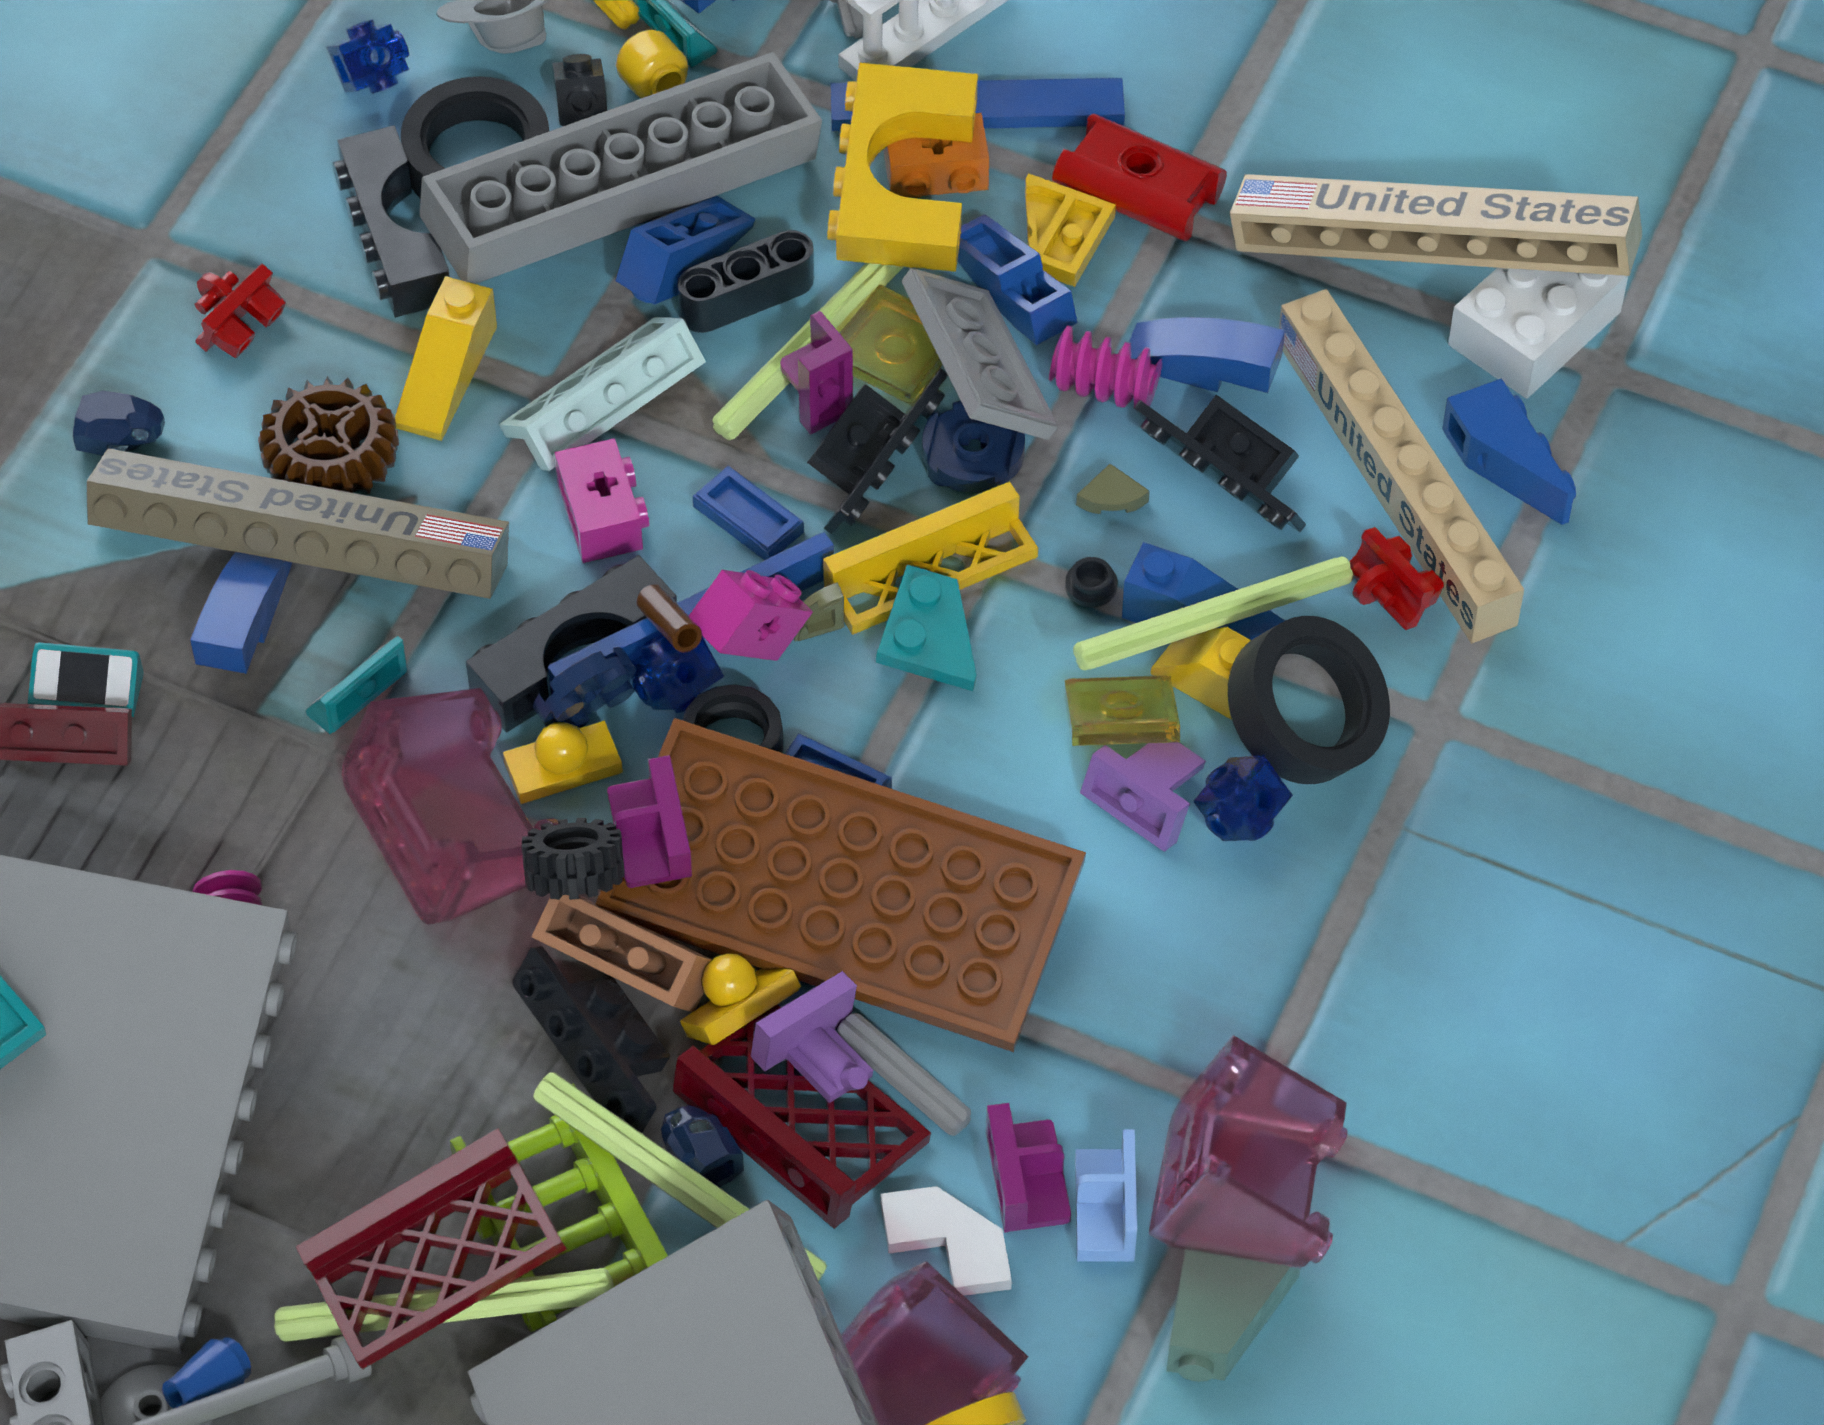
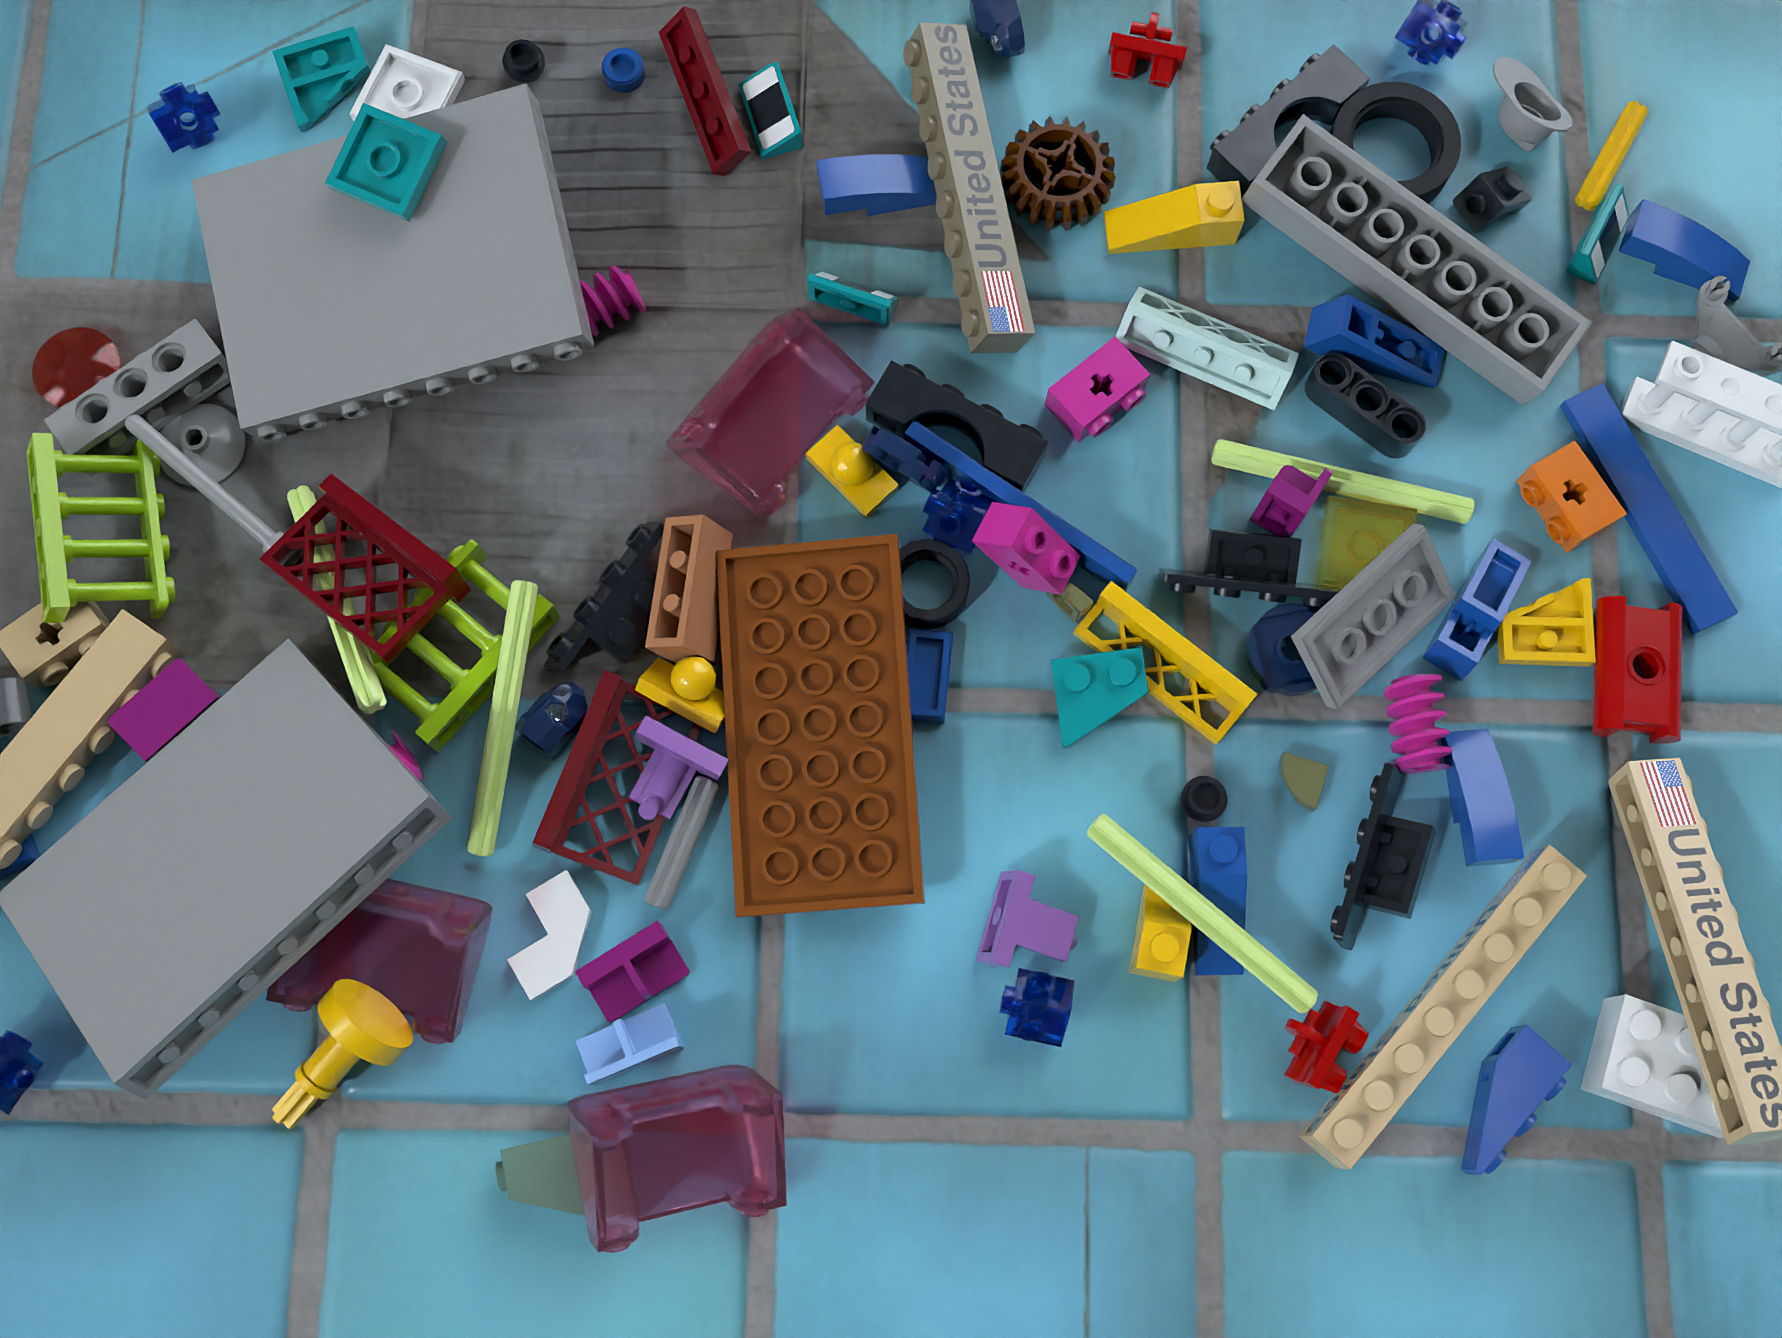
camera: 65 degrees right, 20 degrees up
(210, 1371) = (230, 463): blue cone -> none
(573, 858) = (717, 532): black tyre -> none
(651, 63) = (1540, 240): yellow head -> none
(651, 826) = (790, 560): magenta panel -> none
(669, 618) = (985, 489): reddish brown hinge -> none
(748, 513) = (1145, 506): blue tile -> none
(888, 107) = (1577, 433): yellow arch -> none
(1122, 710) = (1080, 878): clear yellow tile -> none
(1352, 670) = (1161, 1079): black tyre -> none

